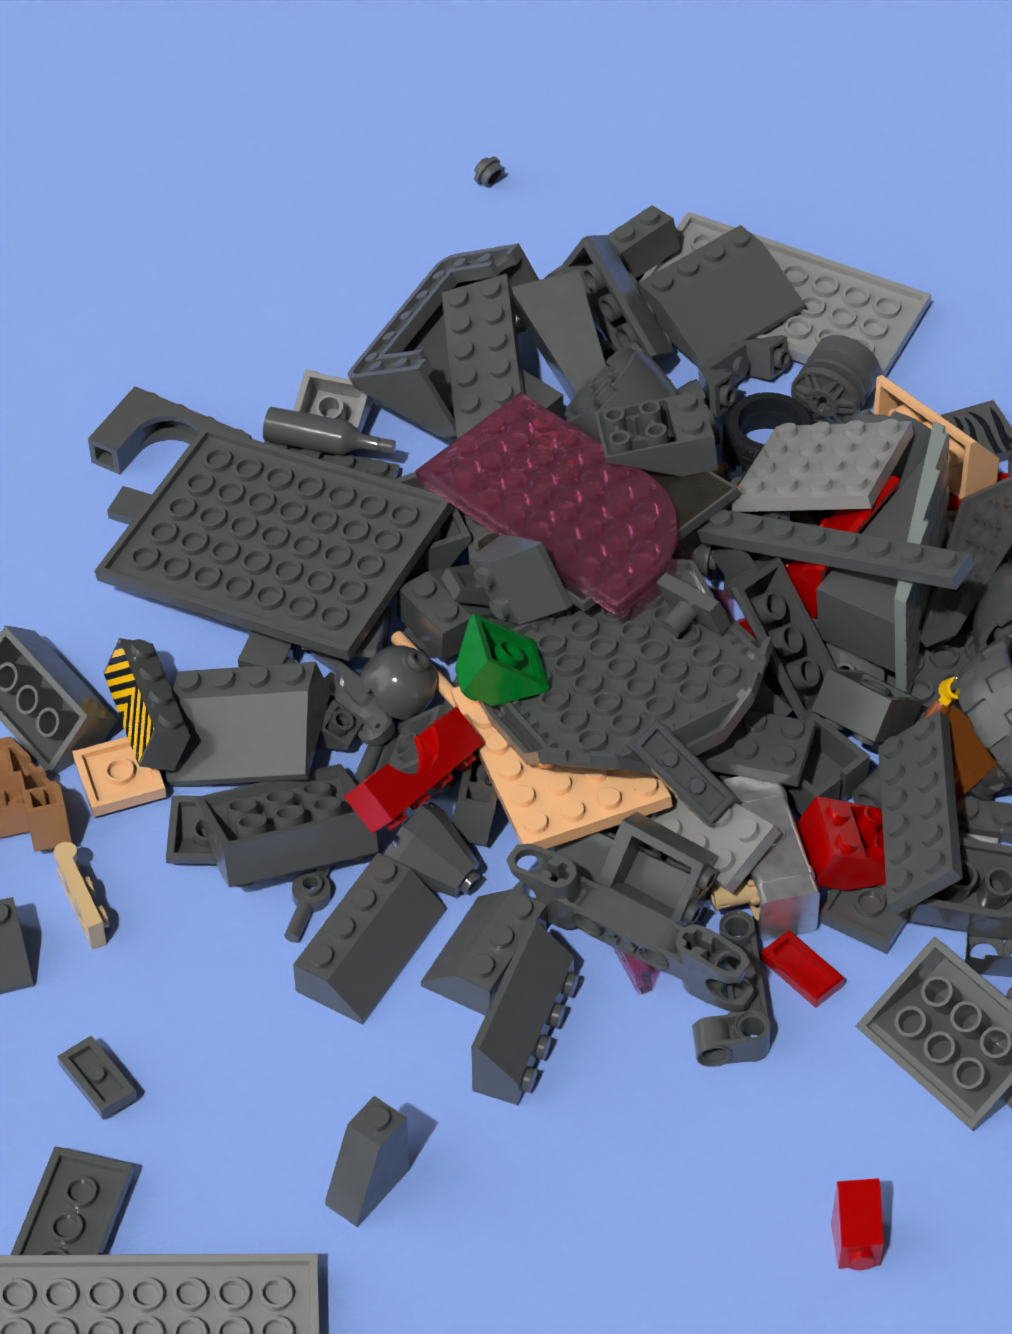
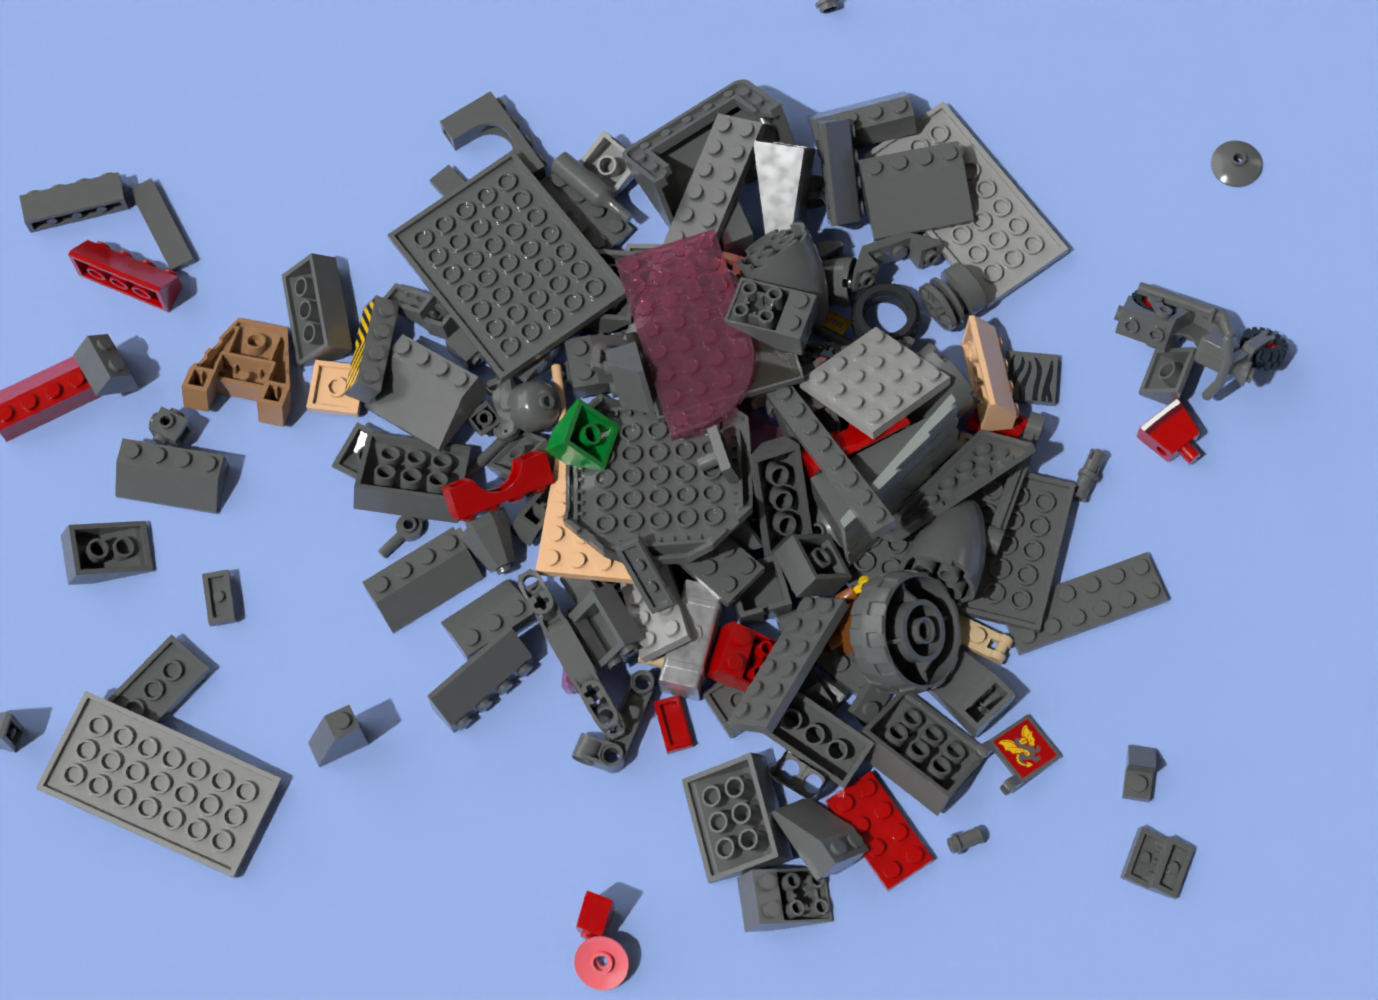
camera: 30 degrees right, 20 degrees up
(80, 894) = (270, 465): tan plate -> none
(186, 642) = (423, 310): none -> dark grey slope
(922, 1282) = (594, 972): none -> coral dish

